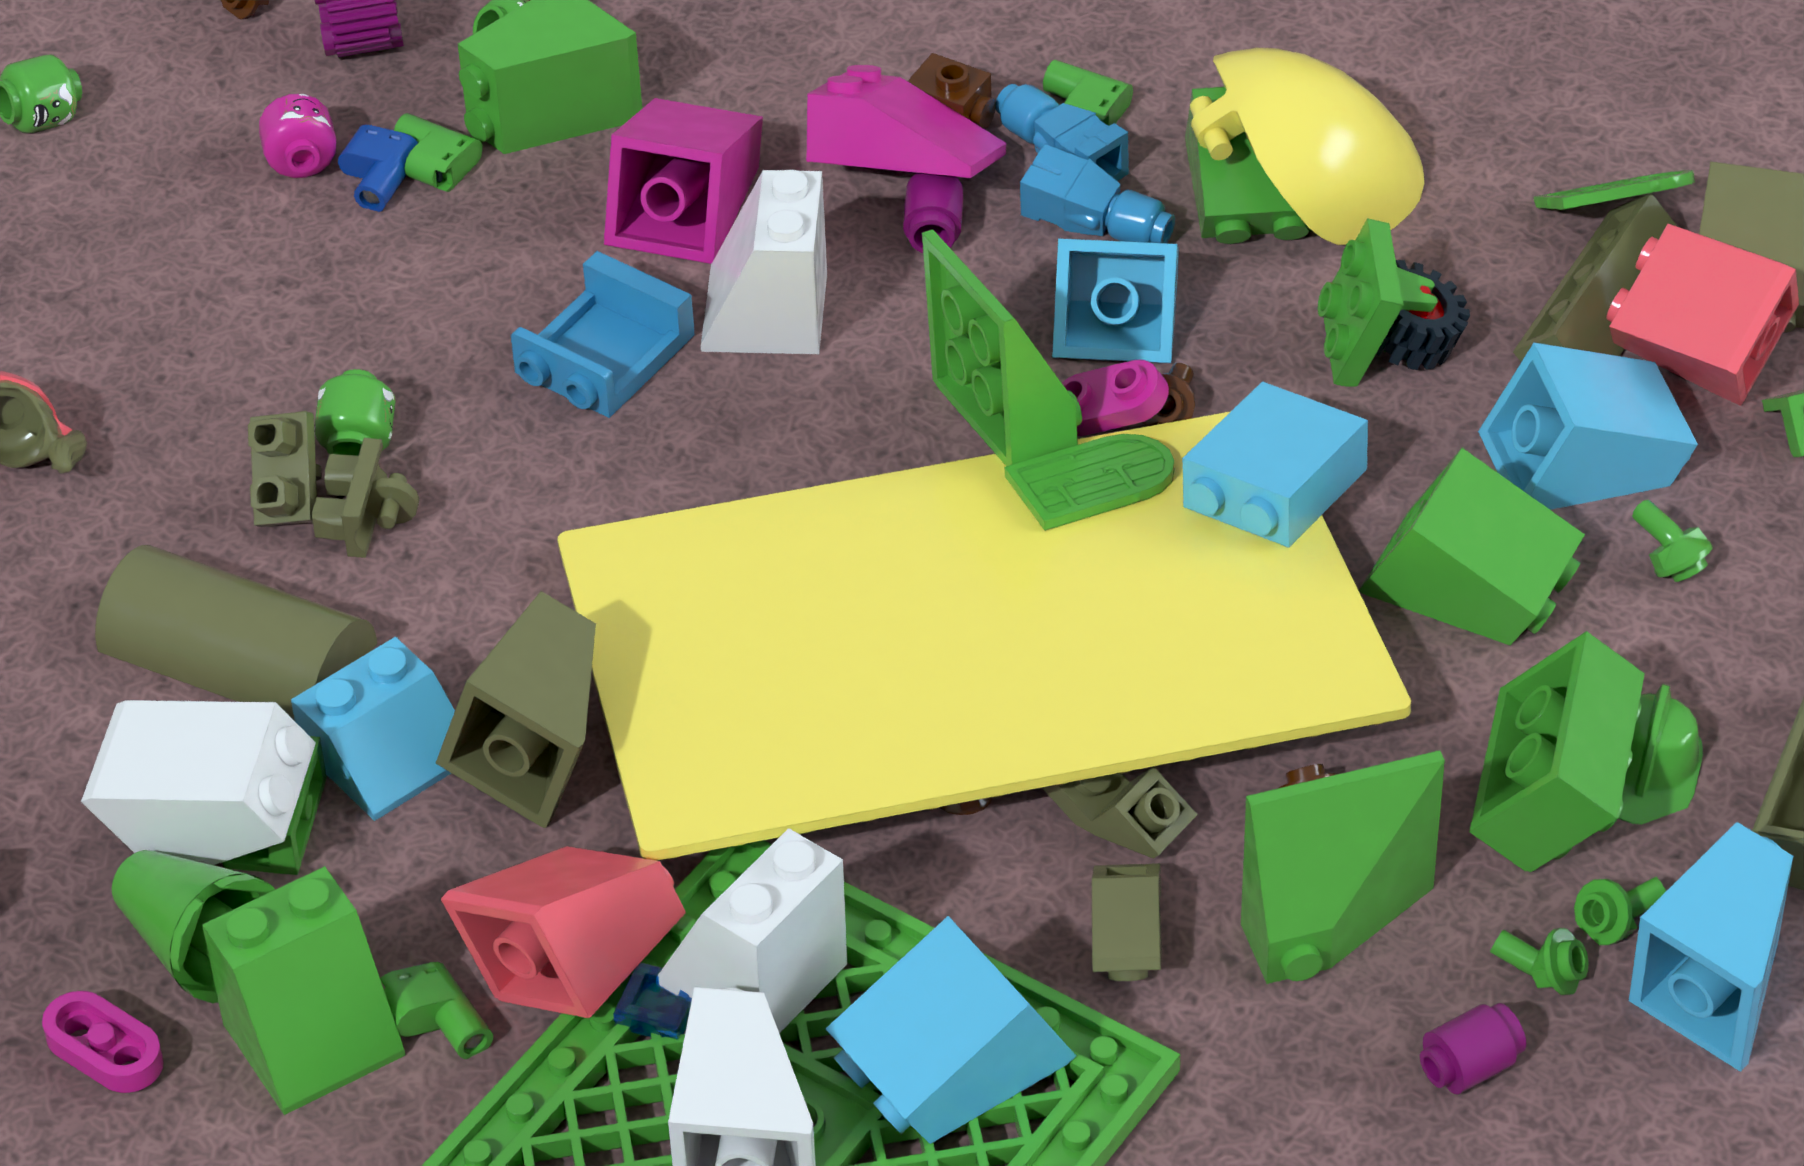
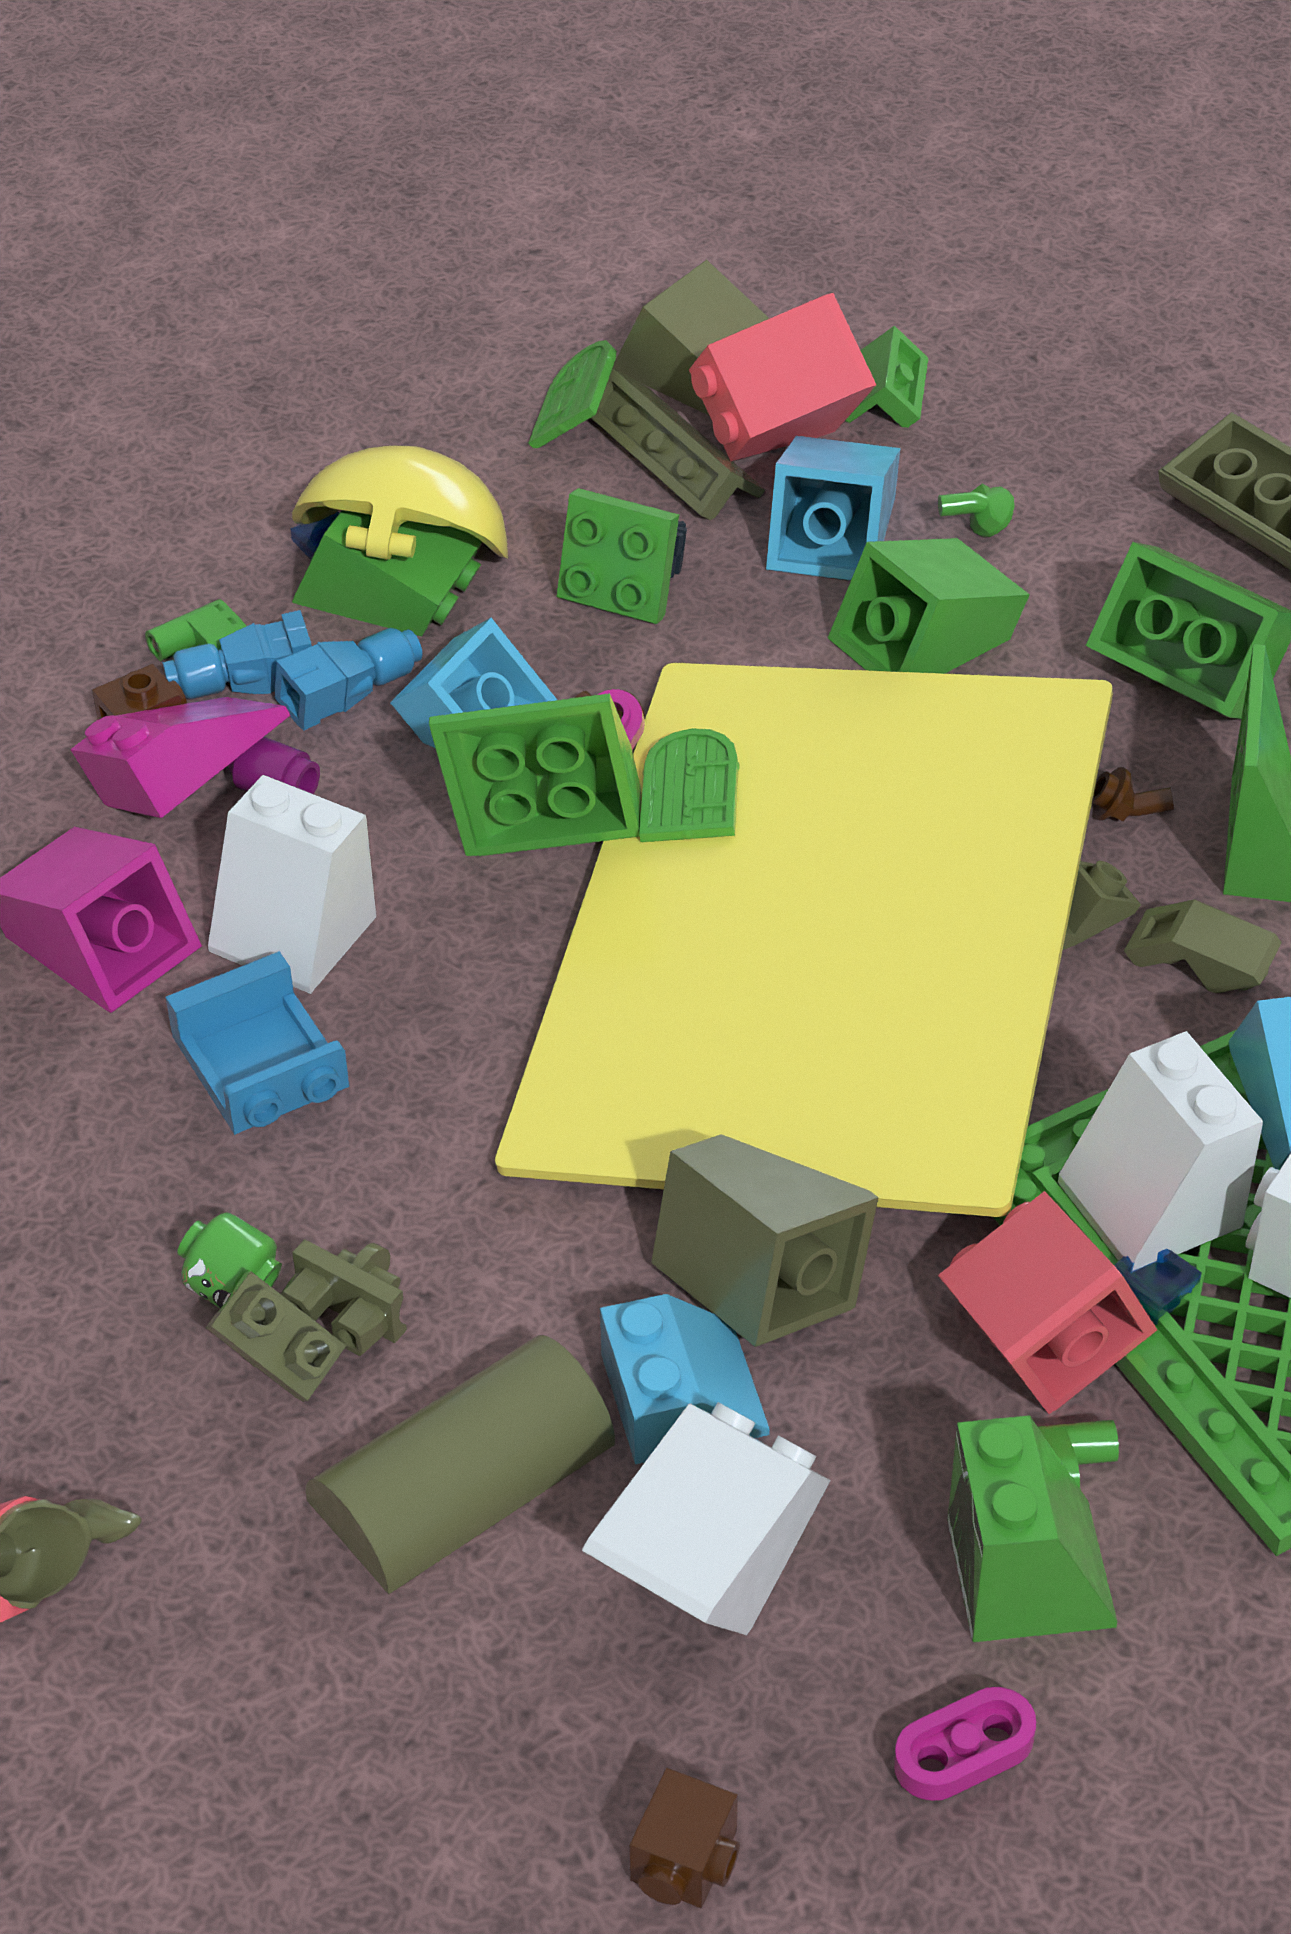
camera: 65 degrees left, 0 degrees up
(170, 901) = (853, 1603): bright green cone -> none
(1275, 464) = (776, 664): medium azure brick -> none

